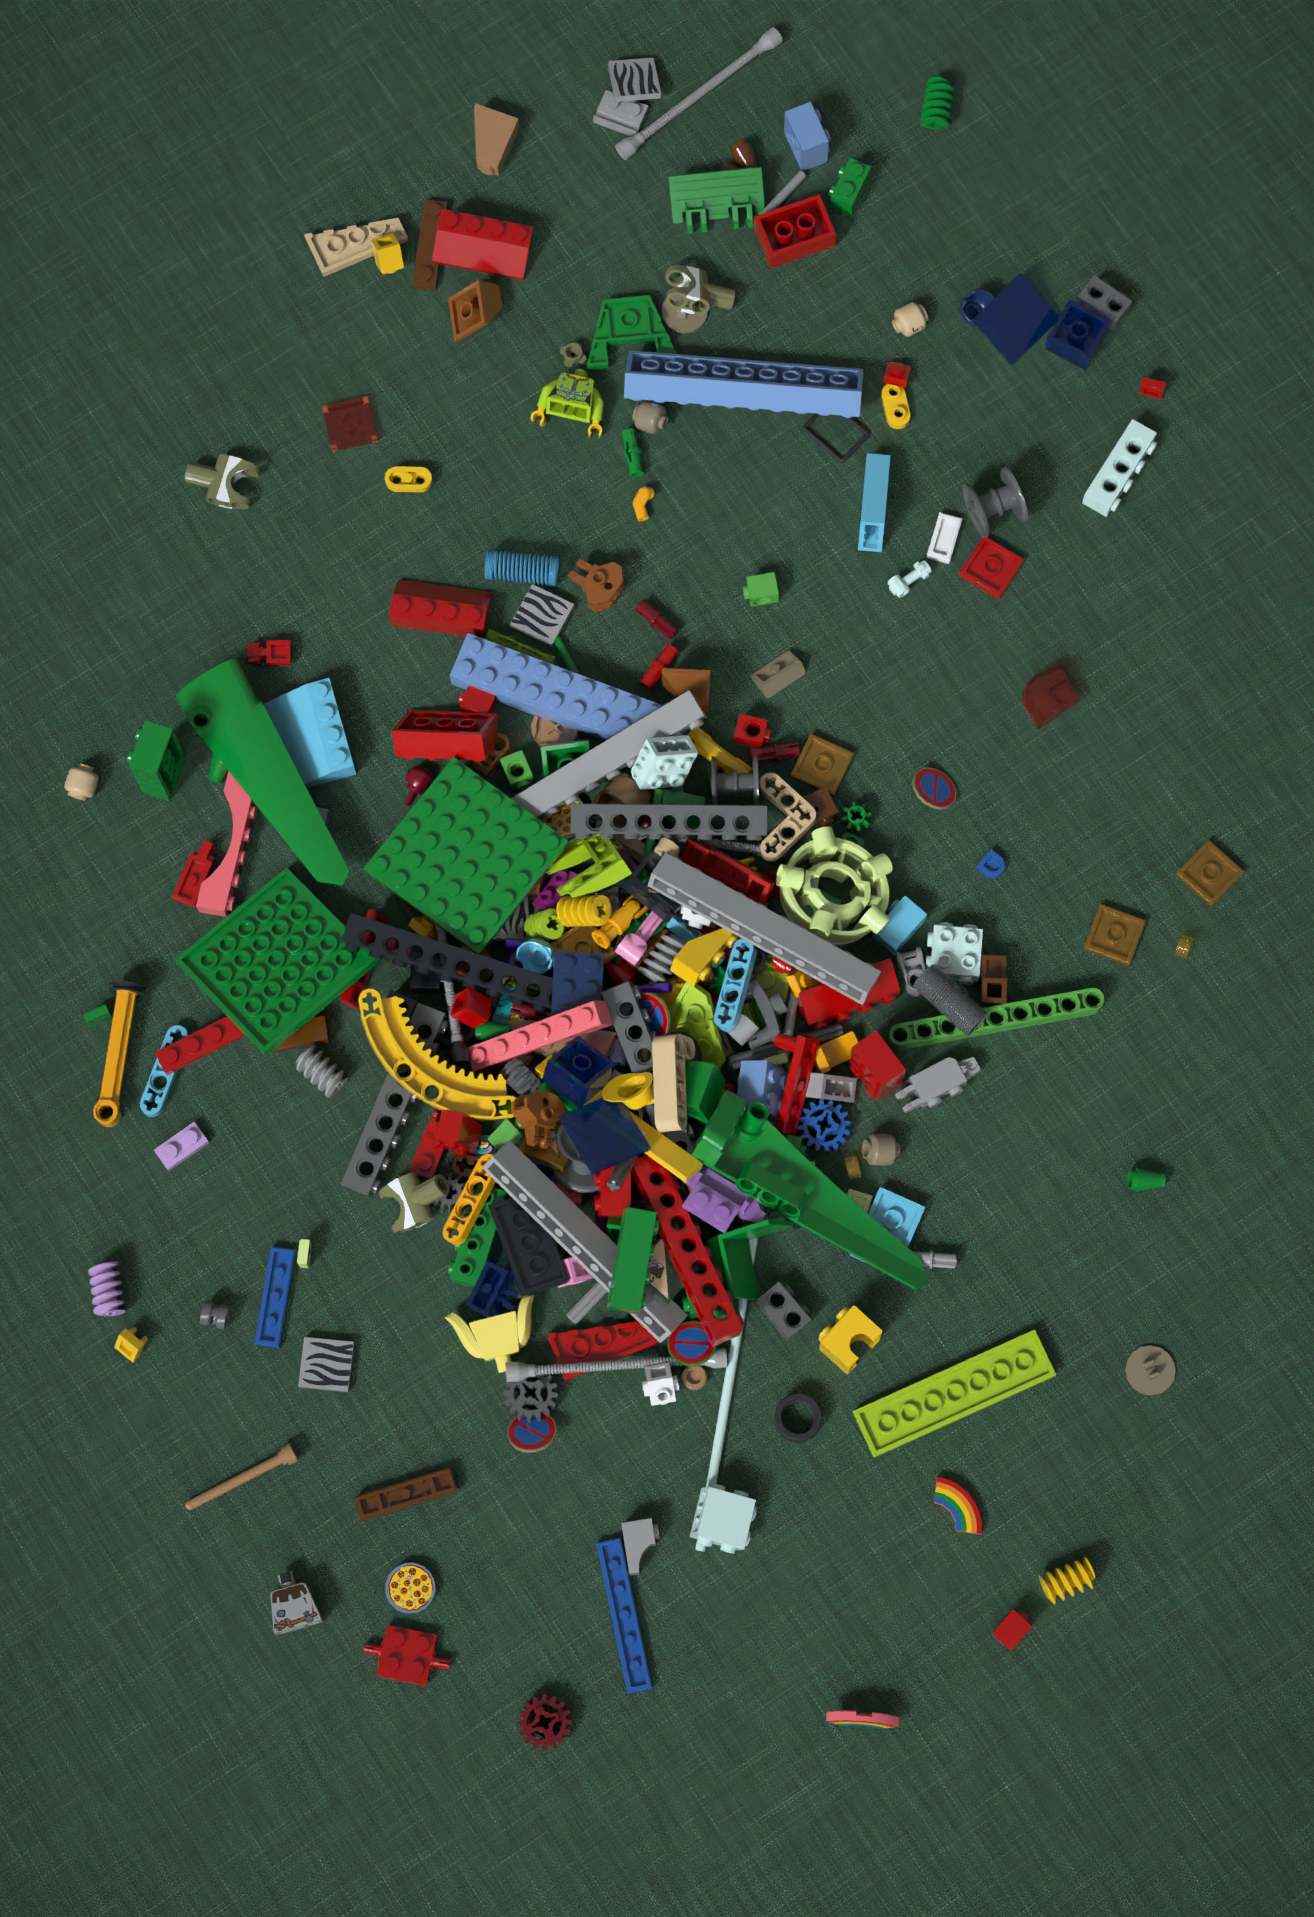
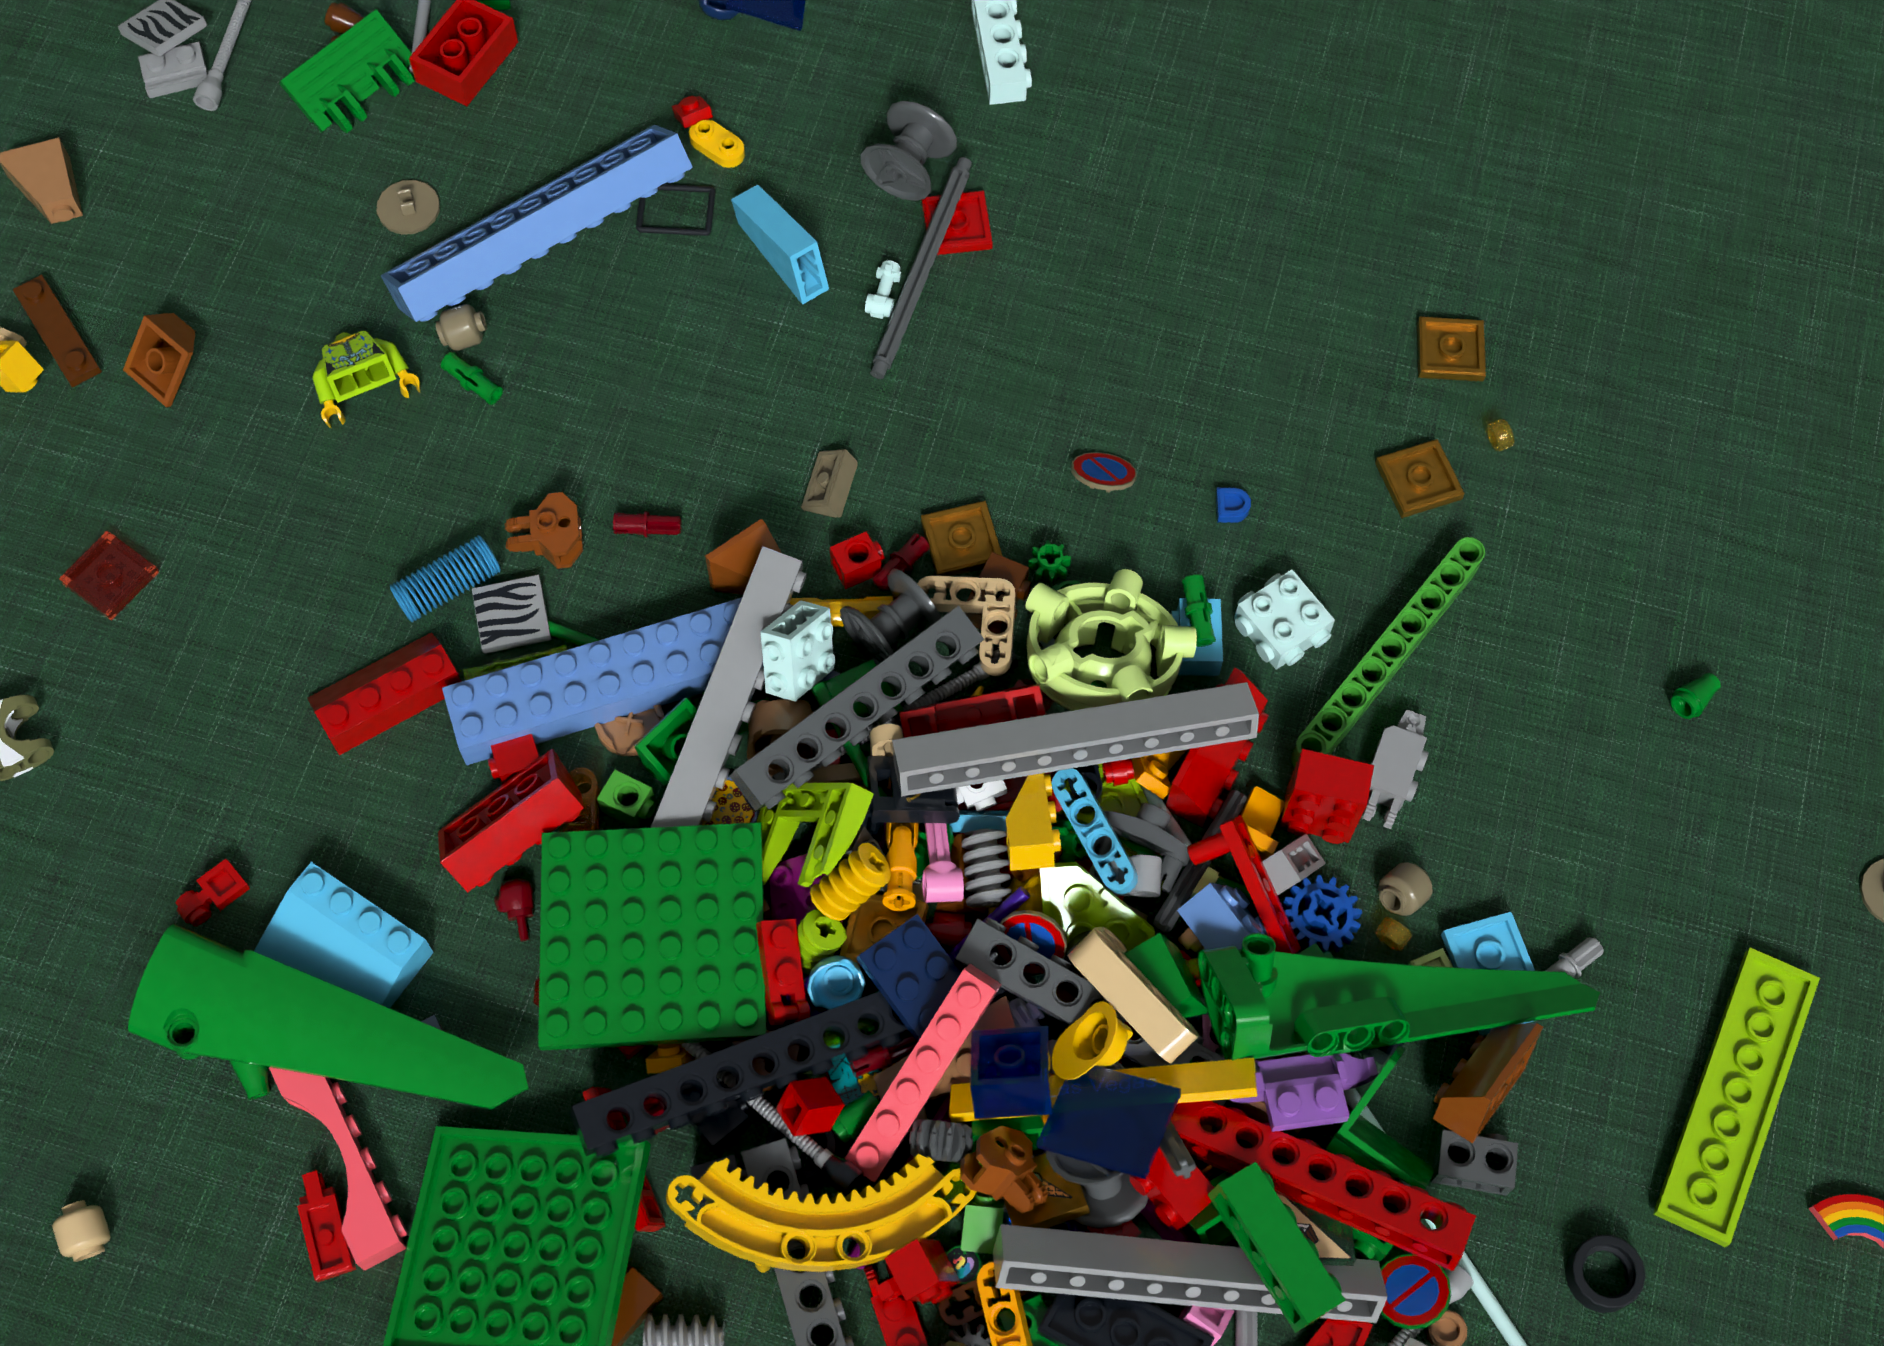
camera: 45 degrees left, 10 degrees down
(156, 760) = (162, 1120): green brick -> none
(408, 478) = (229, 582): yellow plate -> none
(482, 244) = (118, 285): red slope -> none
(514, 927) = (782, 970): none -> red plate
(571, 348) = (312, 322): olive plate -> none
(626, 322) = (354, 255): green wing -> none
(643, 495) = (522, 420): light orange arm -> none
(655, 670) = (693, 570): red pin -> none
(696, 291) = (407, 173): olive connector -> none
(761, 589) = (737, 410): bright green brick -> none
(823, 1276) = (1485, 1078): none -> dark orange slope
(849, 1327) = (1569, 1133): yellow piece -> none
(905, 911) = (1198, 609): none -> green pin
(910, 319) = (659, 52): tan head -> none
(911, 967) = (1257, 668): light grey piece -> none
(943, 580) = (920, 268): none -> dark grey piece
(944, 538) = (882, 229): white tile -> none
(953, 1001) = (1346, 663): dark grey piece -> none
(993, 980) = (1355, 620): reddish brown brick -> none
(1048, 696) = (1131, 297): clear red brick -> none

